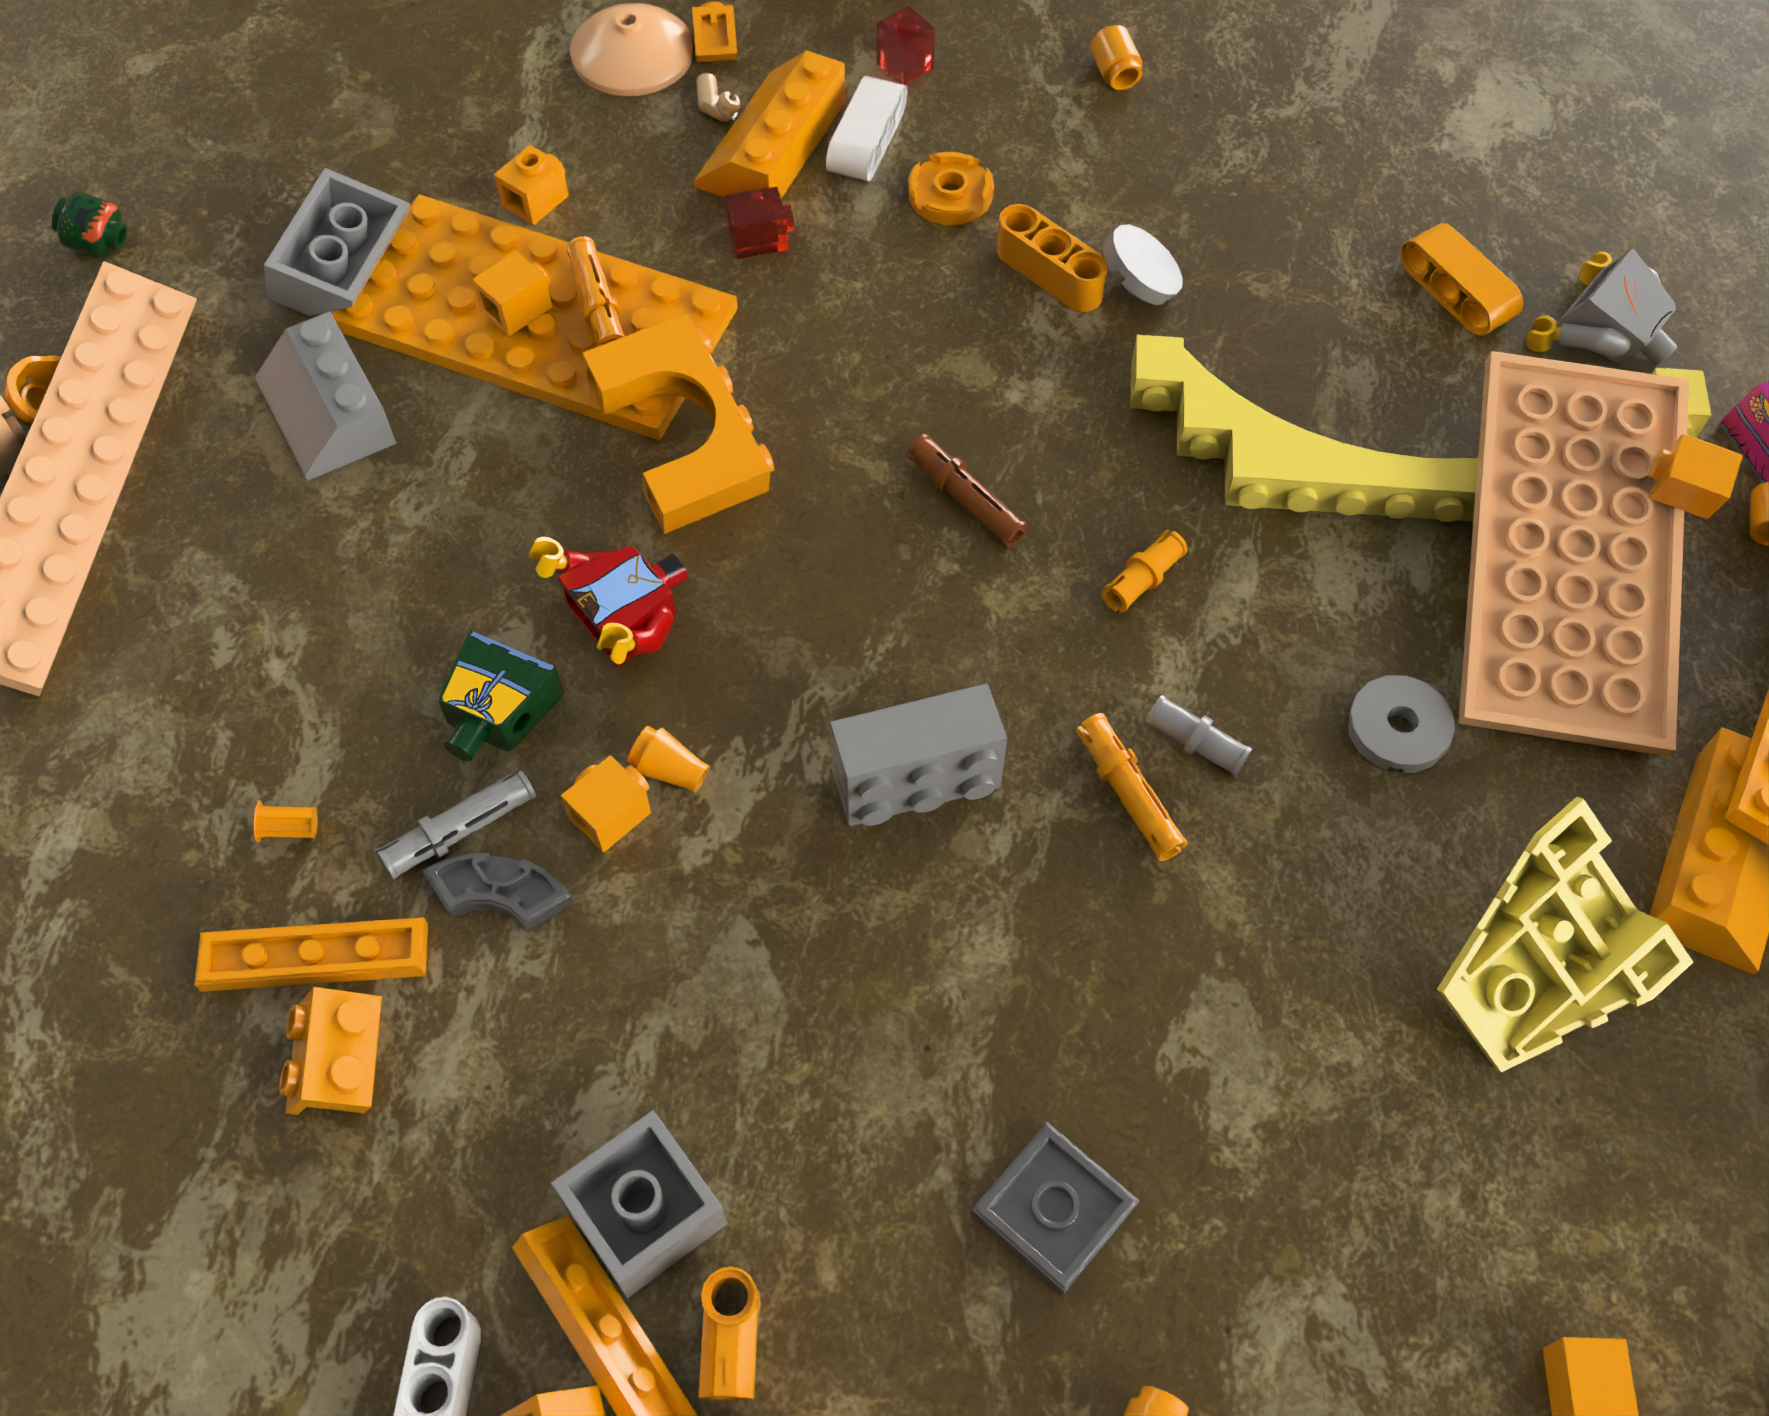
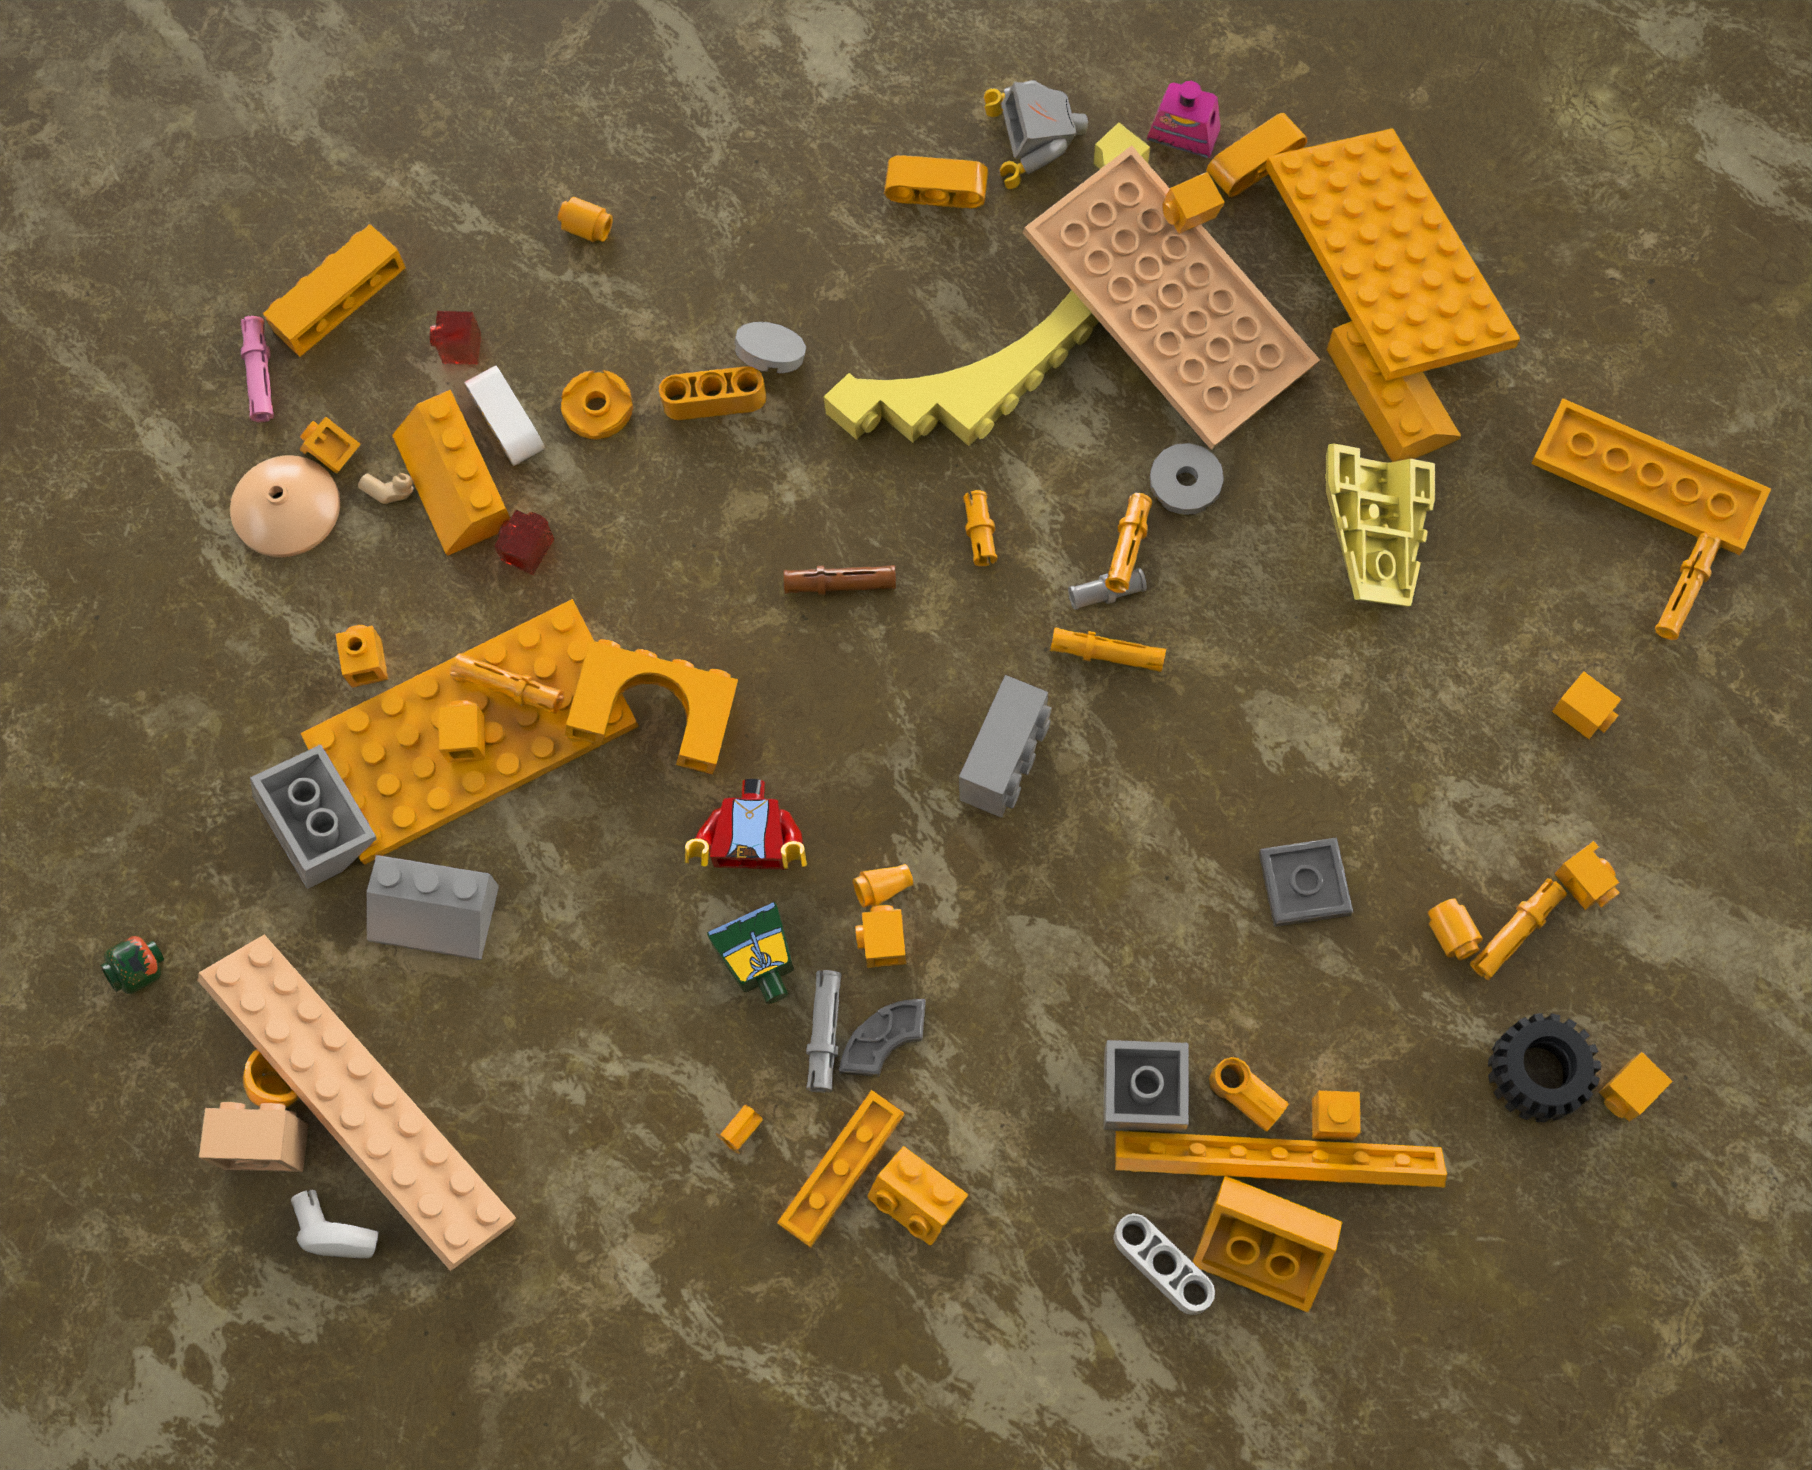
camera: 45 degrees left, 10 degrees up
(1312, 701) = (1131, 530): none -> light orange pin

